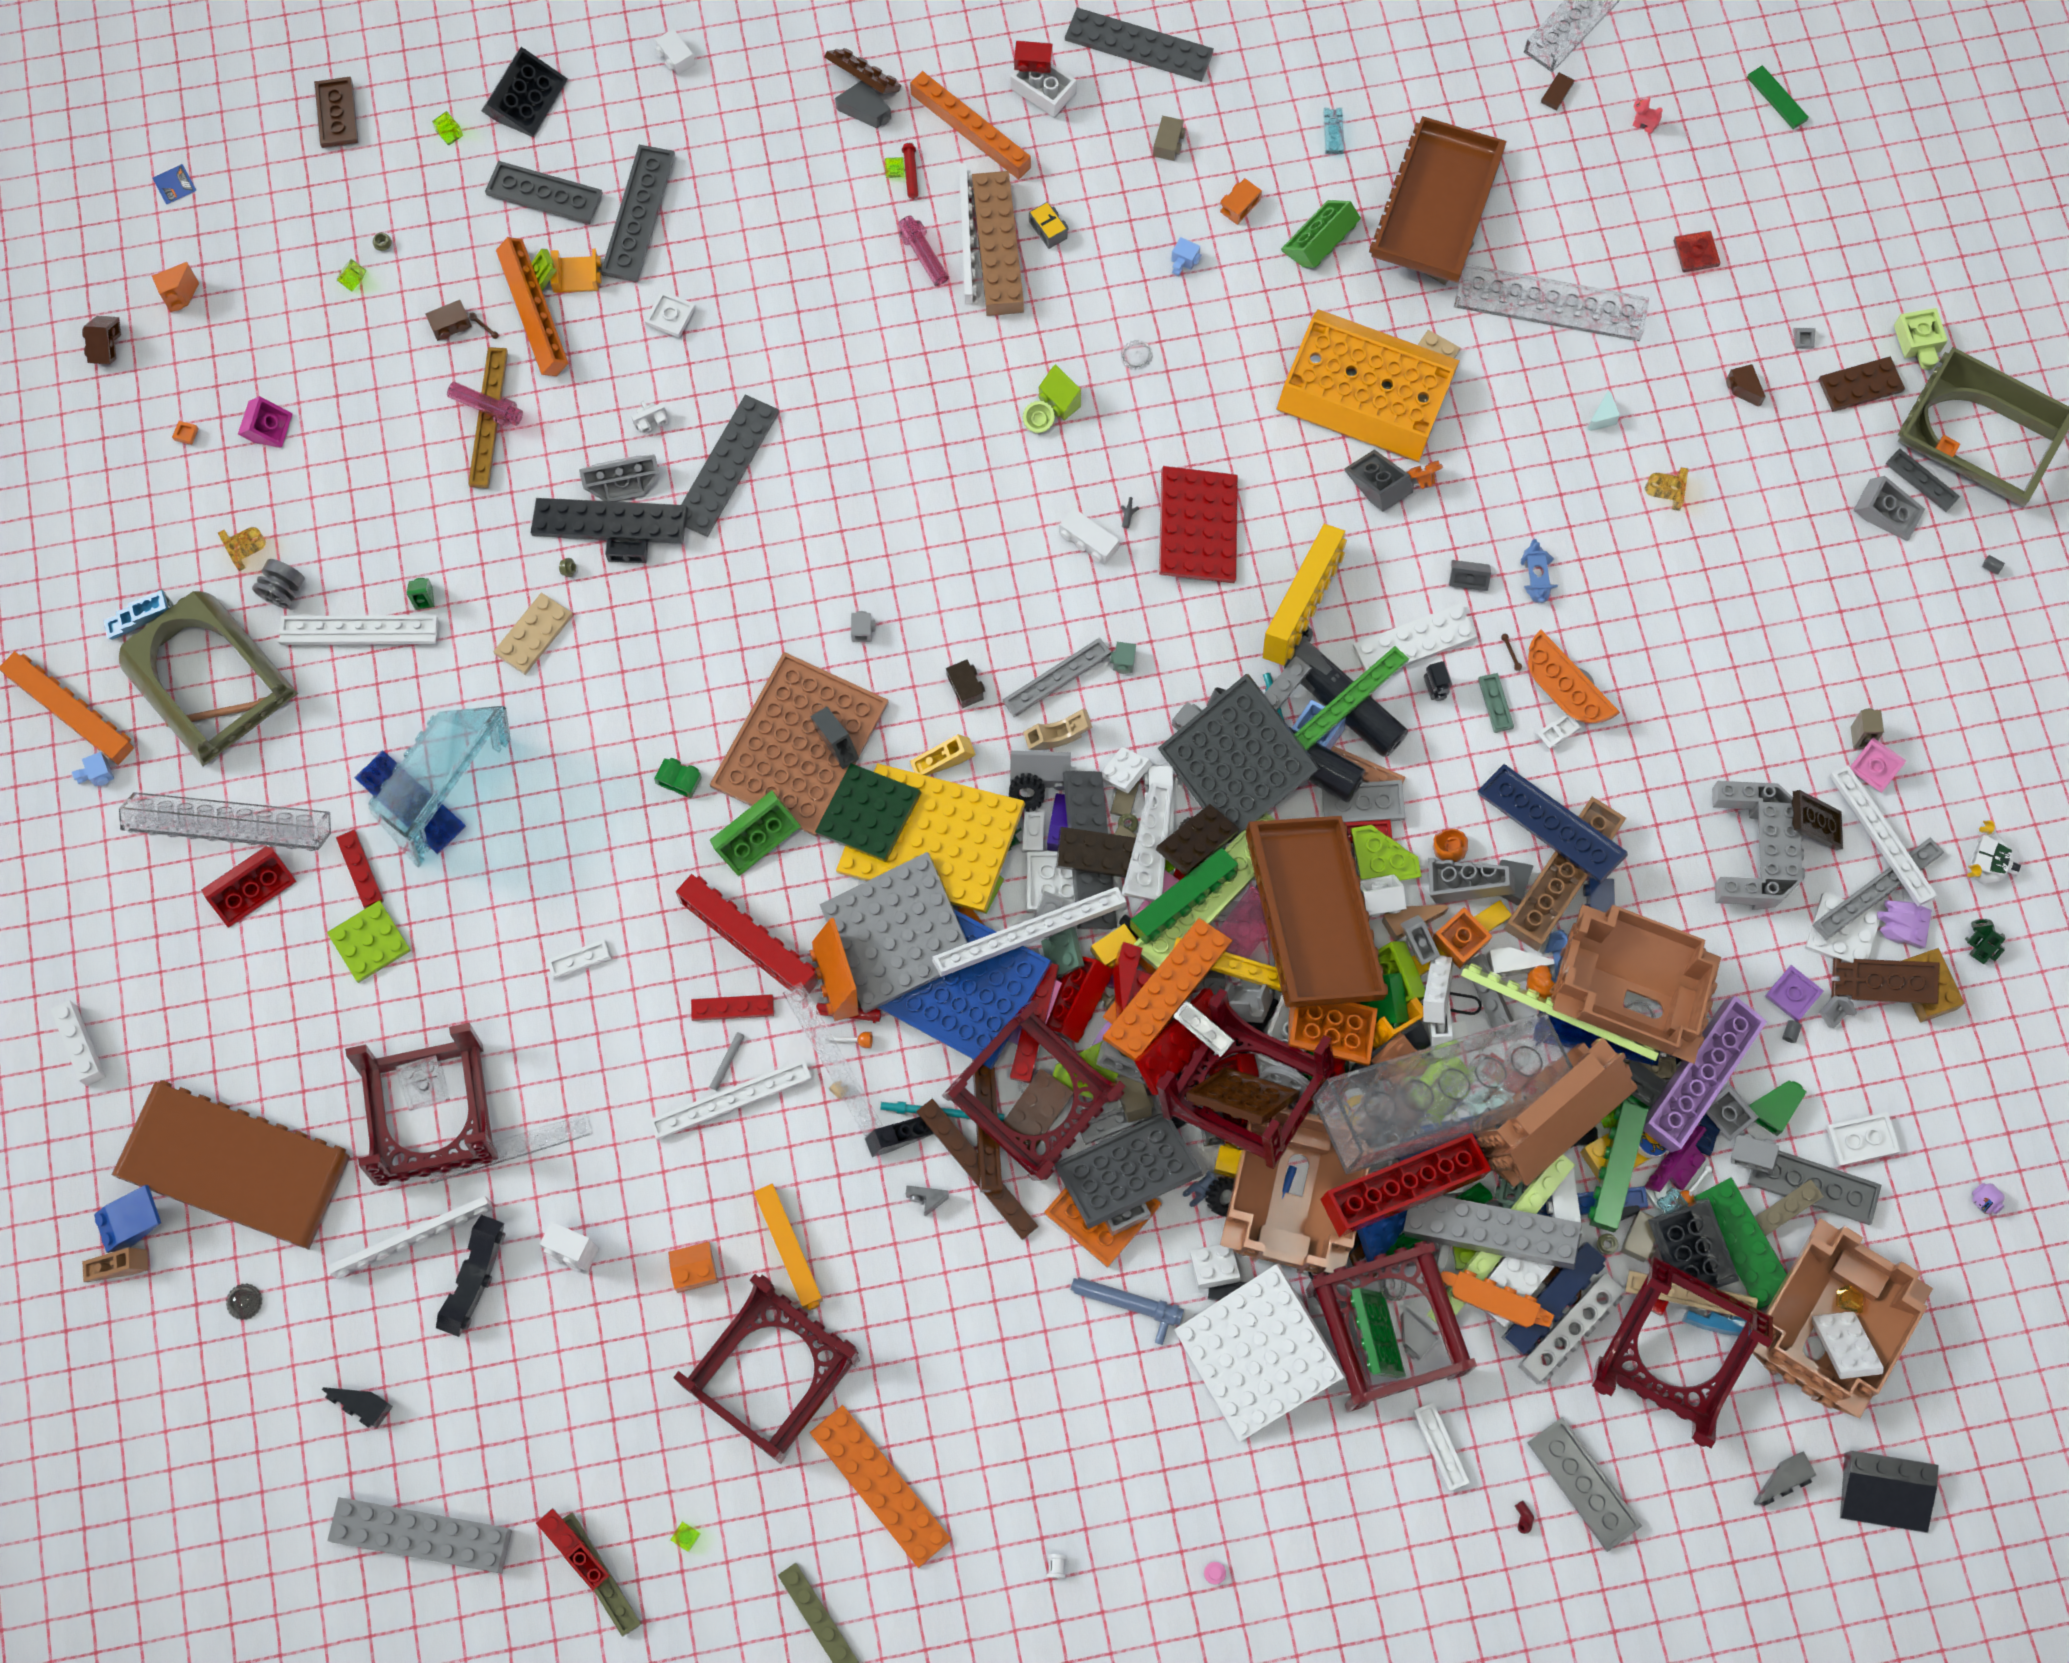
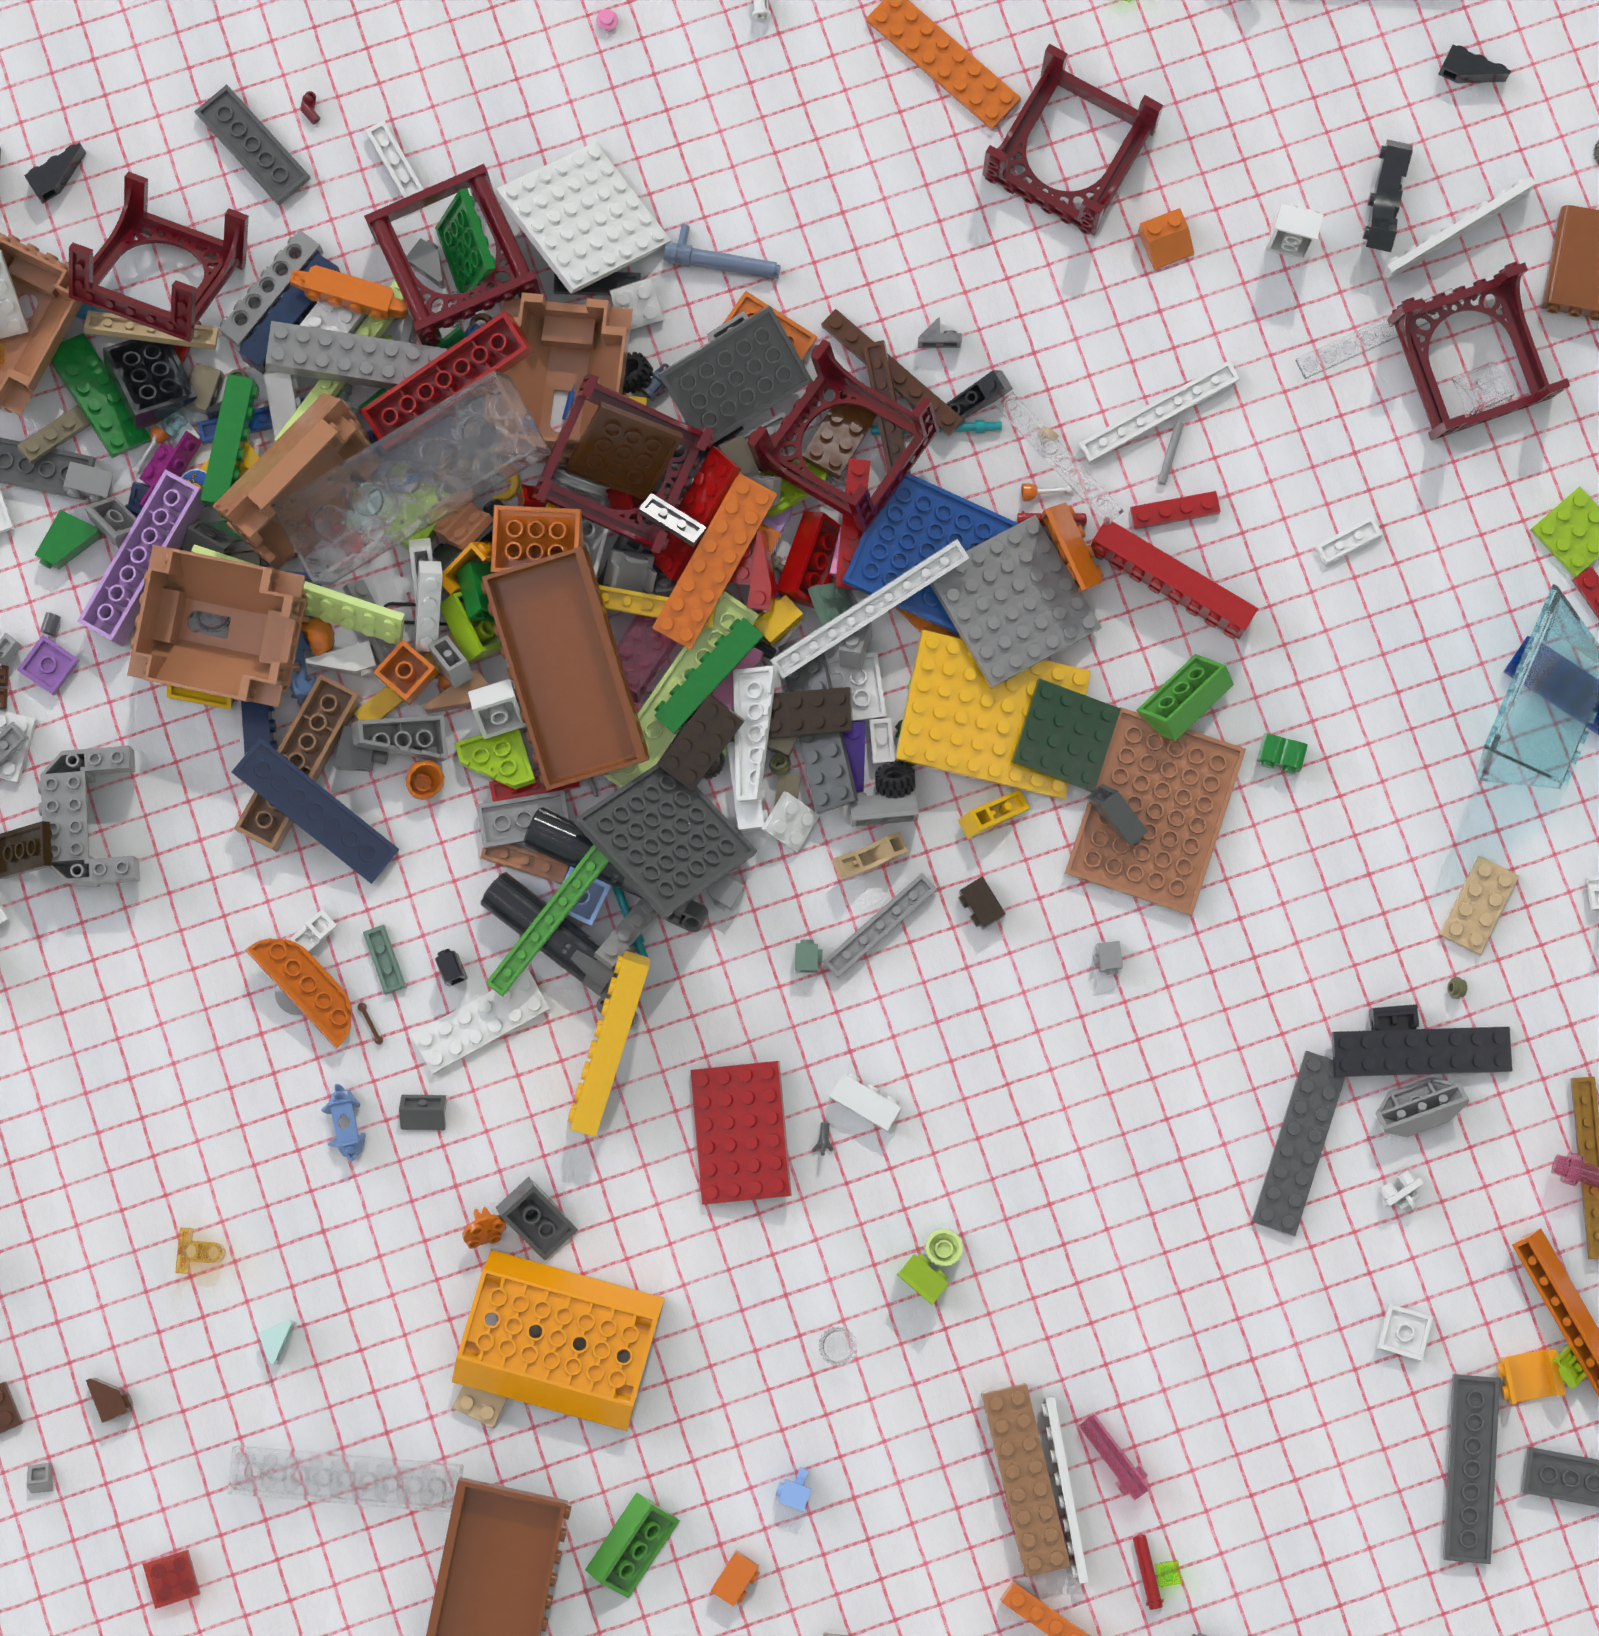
camera: 175 degrees right, 10 degrees up
(788, 1247) = (1072, 270): light orange brick -> none
(1048, 225) = (966, 1513): brick -> none

